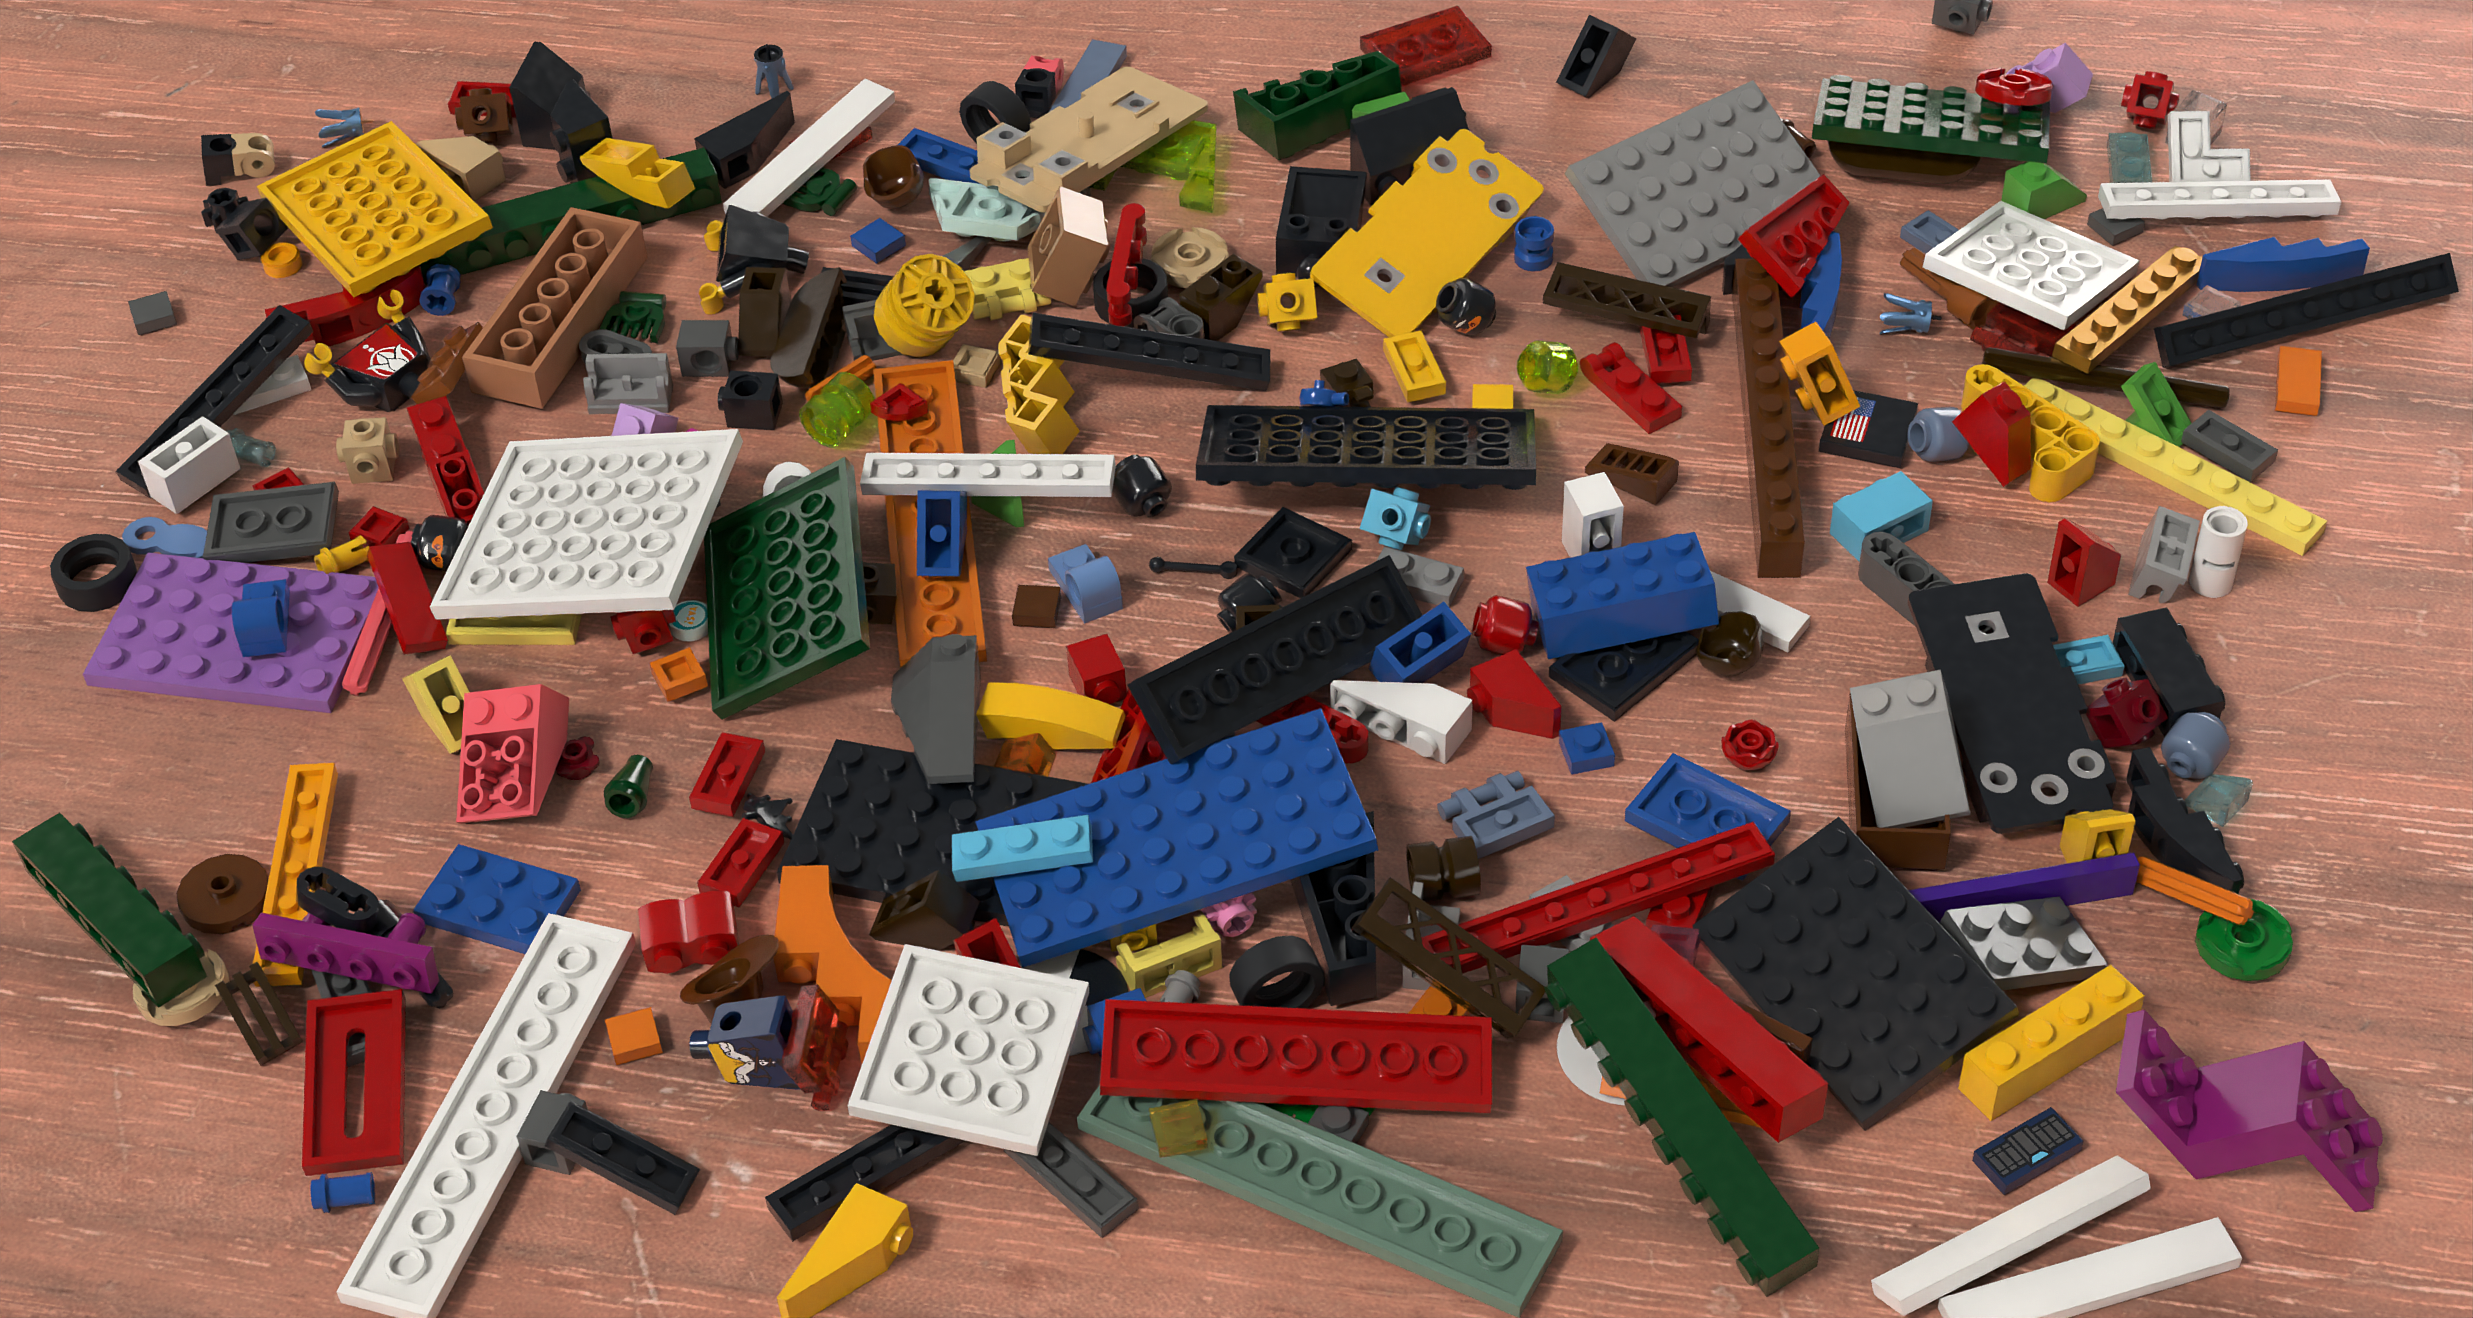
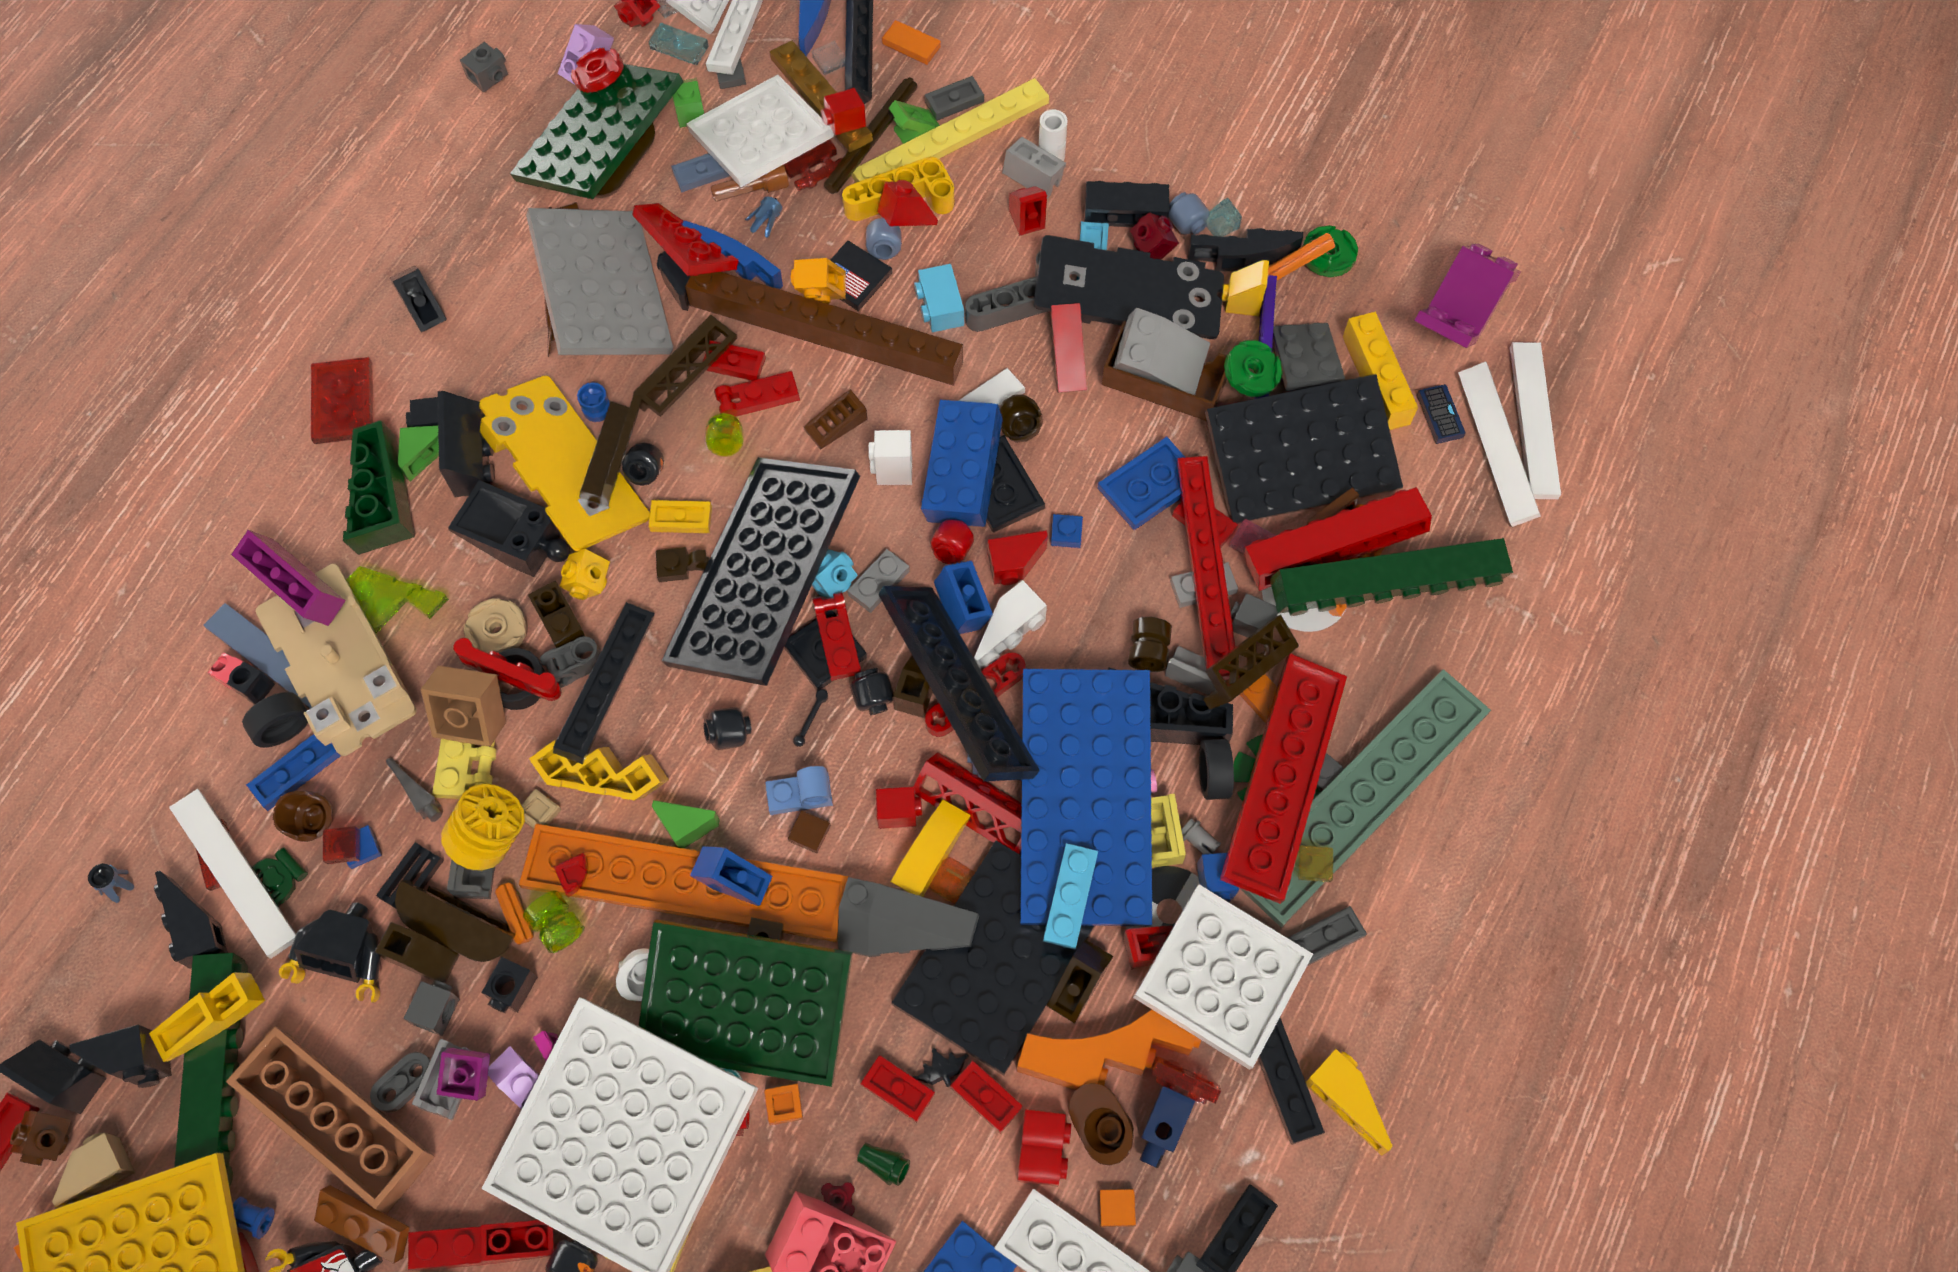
camera: 75 degrees left, 20 degrees up
(630, 379) = (463, 1074): none -> magenta piece
(637, 313) = (354, 1054): dark green piece -> none
(868, 215) = (341, 845): none -> clear red plate
(981, 211) = (372, 766): light aqua wing -> none
(989, 474) = (693, 828): white plate -> none
(1162, 62) = (288, 578): none -> magenta brick
(1309, 546) = (837, 637): none -> red plate
(1322, 397) = (689, 584): blue piece -> none
(1492, 396) = (732, 480): yellow tile -> none
(1496, 271) = (610, 452): none -> dark brown fence
(1500, 823) = (1116, 599): sand blue plate -> none
(1749, 745) = (1105, 432): red plate -> none
(1870, 658) = (1068, 348): none -> tile
(1948, 841) = (1261, 360): none -> green plate
(2093, 311) = (844, 111): none -> red brick

